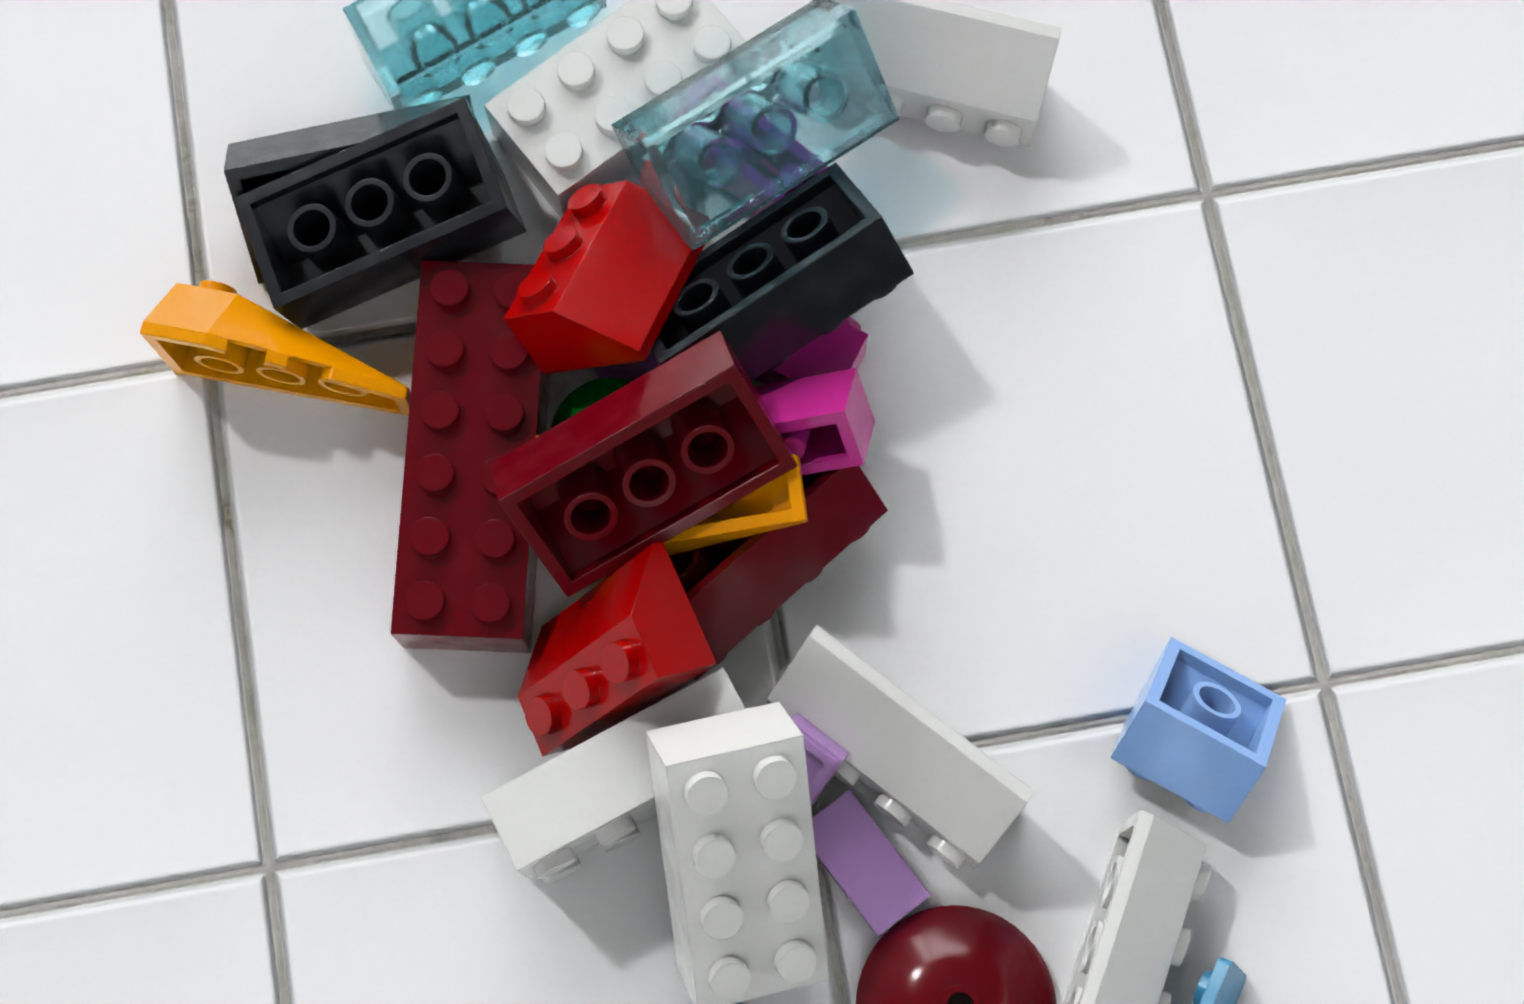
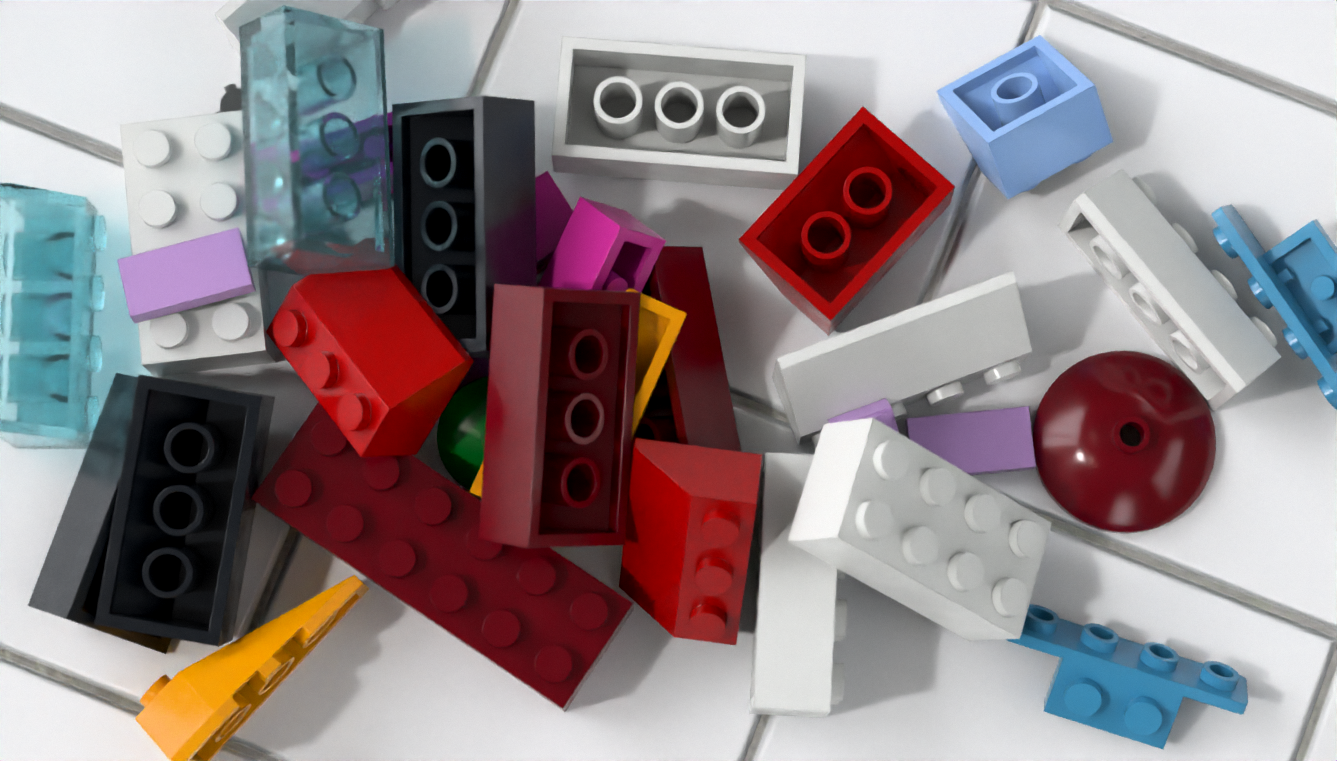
camera: 60 degrees left, 5 degrees up
(576, 87) = (186, 275): none -> lavender tile
(994, 622) = (846, 220): none -> red slope
(995, 417) = (678, 113): none -> white brick

